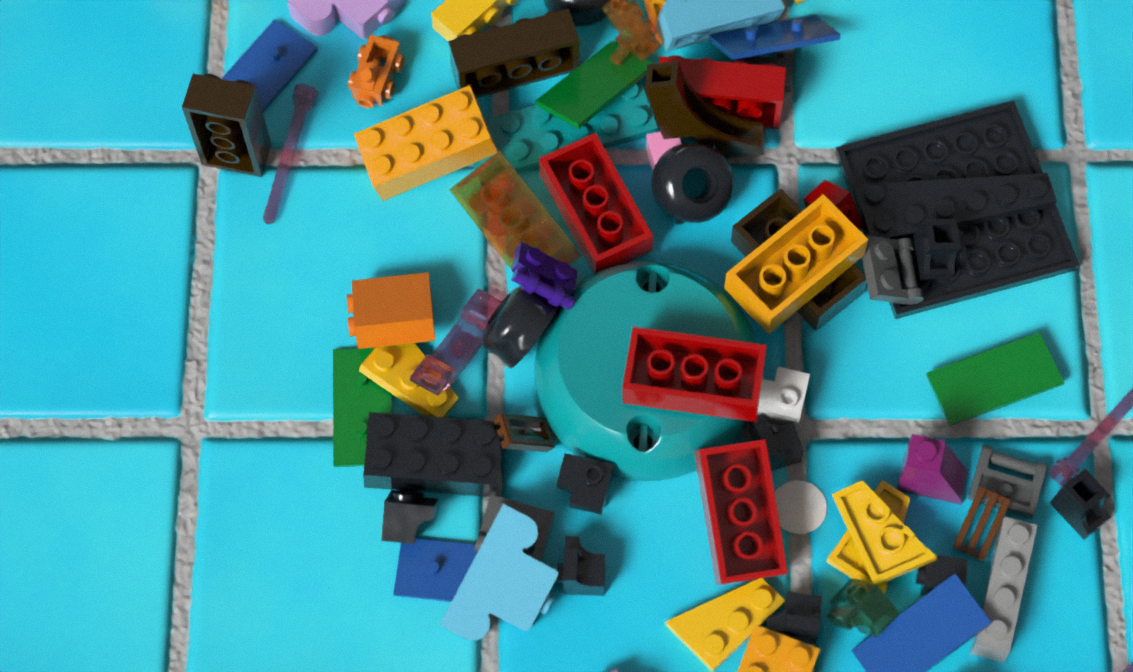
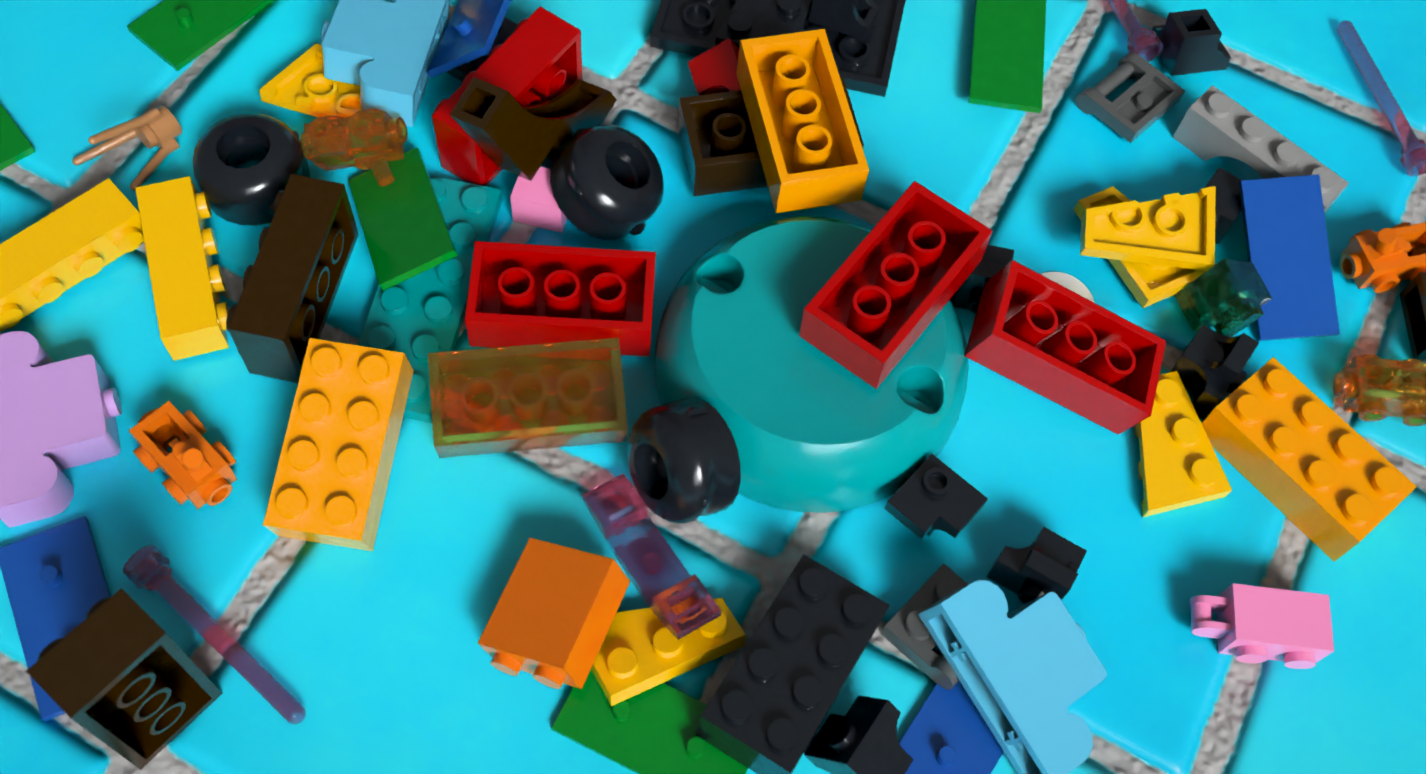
camera: 70 degrees left, 5 degrees down
(525, 438) = (824, 546): tile -> none
(544, 275) = (646, 387): dark purple plate -> none
(883, 273) = (856, 59): dark grey plate -> none
(932, 470) = (1096, 147): magenta slope -> none
(982, 521) = (1177, 137): reddish brown tile -> none

